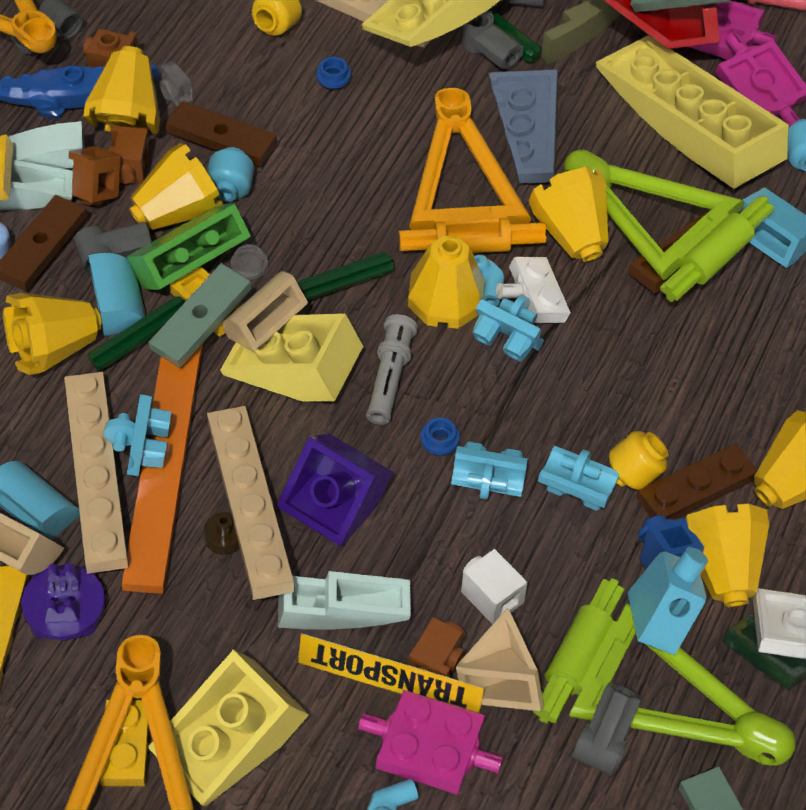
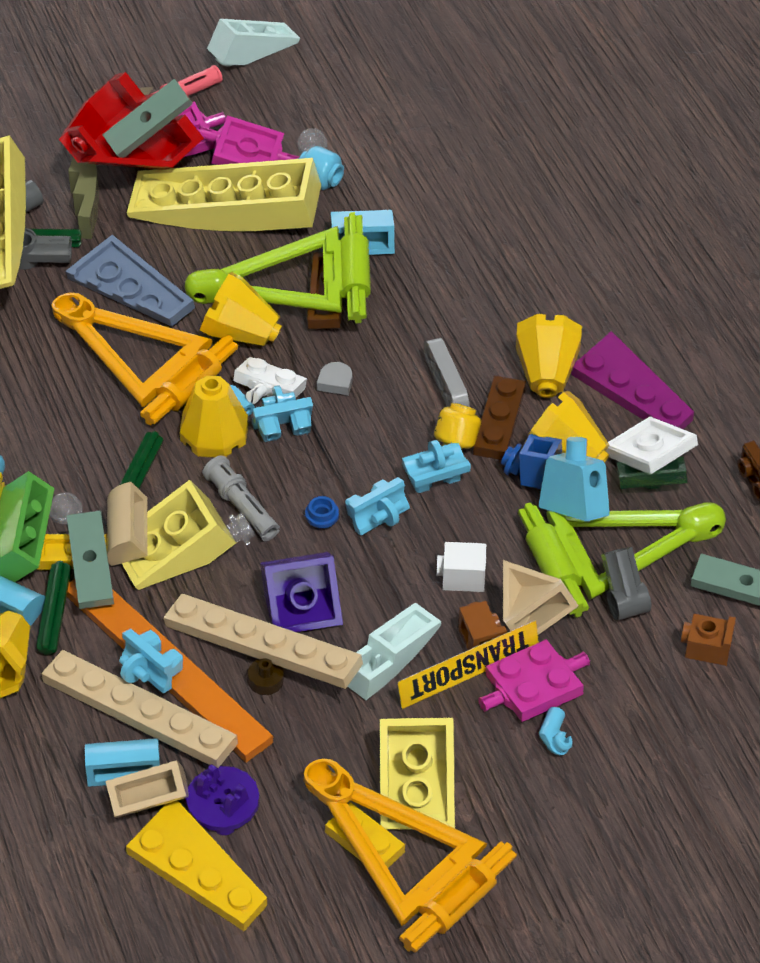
camera: 45 degrees left, 5 degrees down
(355, 392) = (240, 528): none -> clear plate
(596, 333) = (335, 378): none -> light grey tile
(691, 408) = (445, 372): none -> light grey beam

